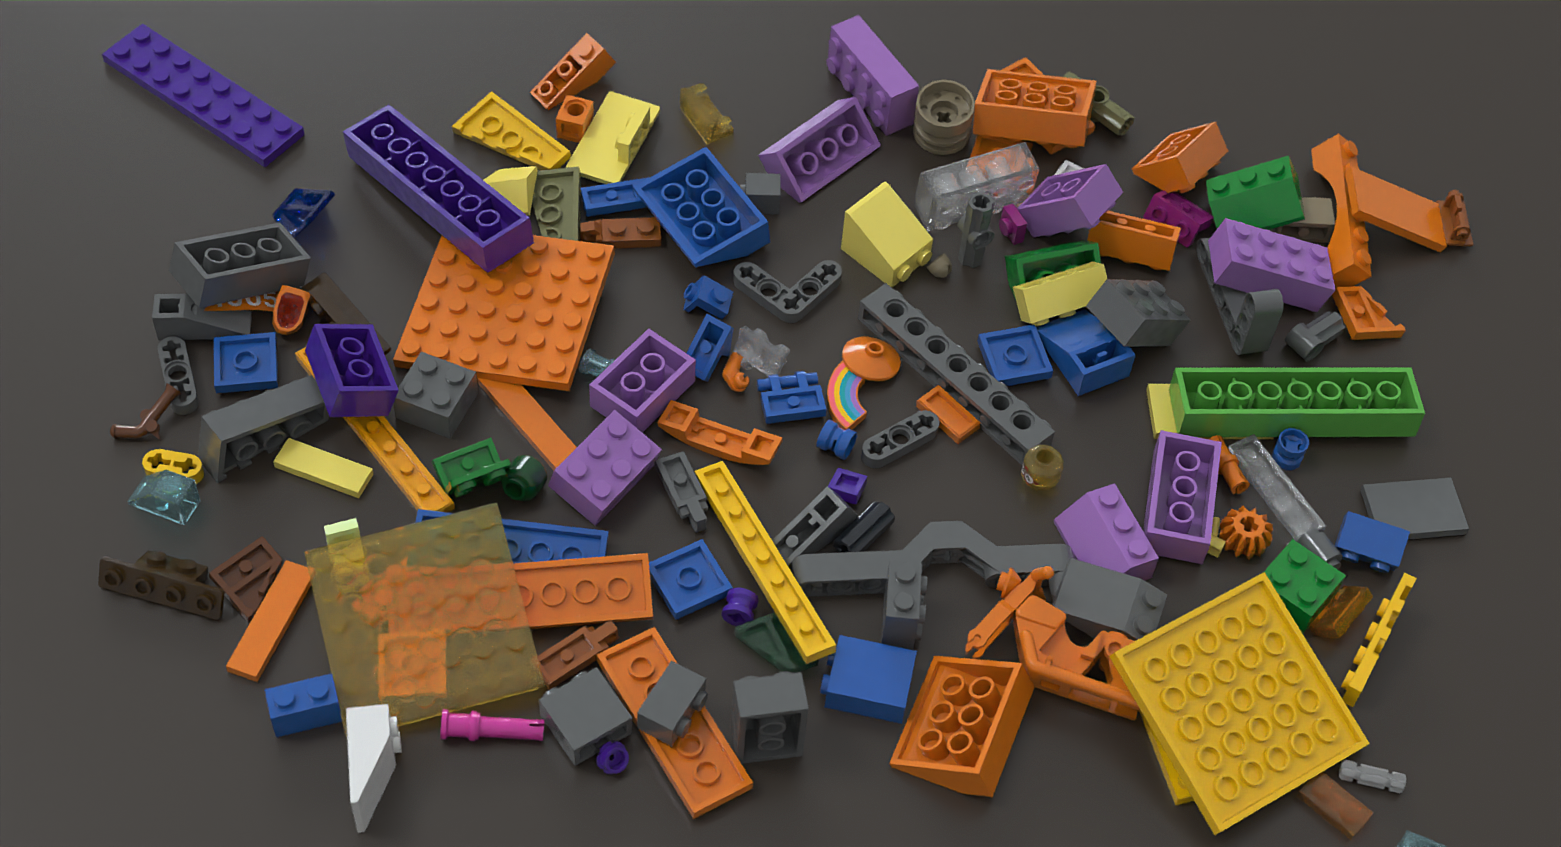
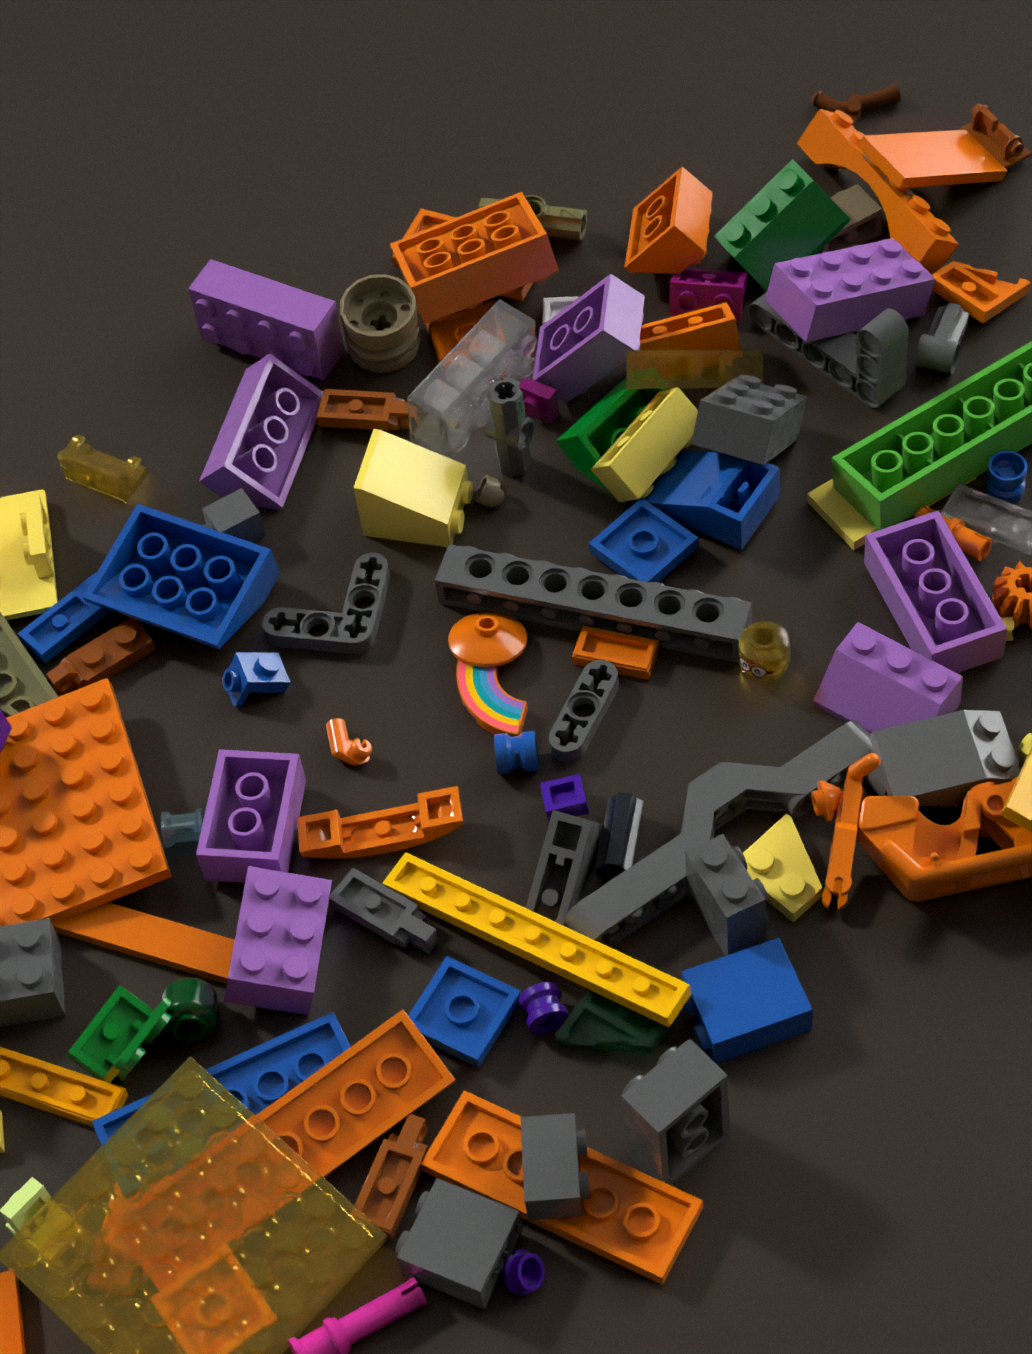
camera: 20 degrees left, 0 degrees up
(709, 344) = (299, 727): blue slope -> none
(759, 352) = (359, 704): clear hips -> none
(791, 403) = (436, 741): blue plate -> none
(893, 166) = (362, 410): none -> dark orange hinge
(953, 611) = (784, 869): none -> light yellow wing
(964, 723) = (882, 988): orange slope -> none
(1124, 257) = (690, 368): none -> clear yellow slope
(1375, 144) = (857, 102): none -> reddish brown piece

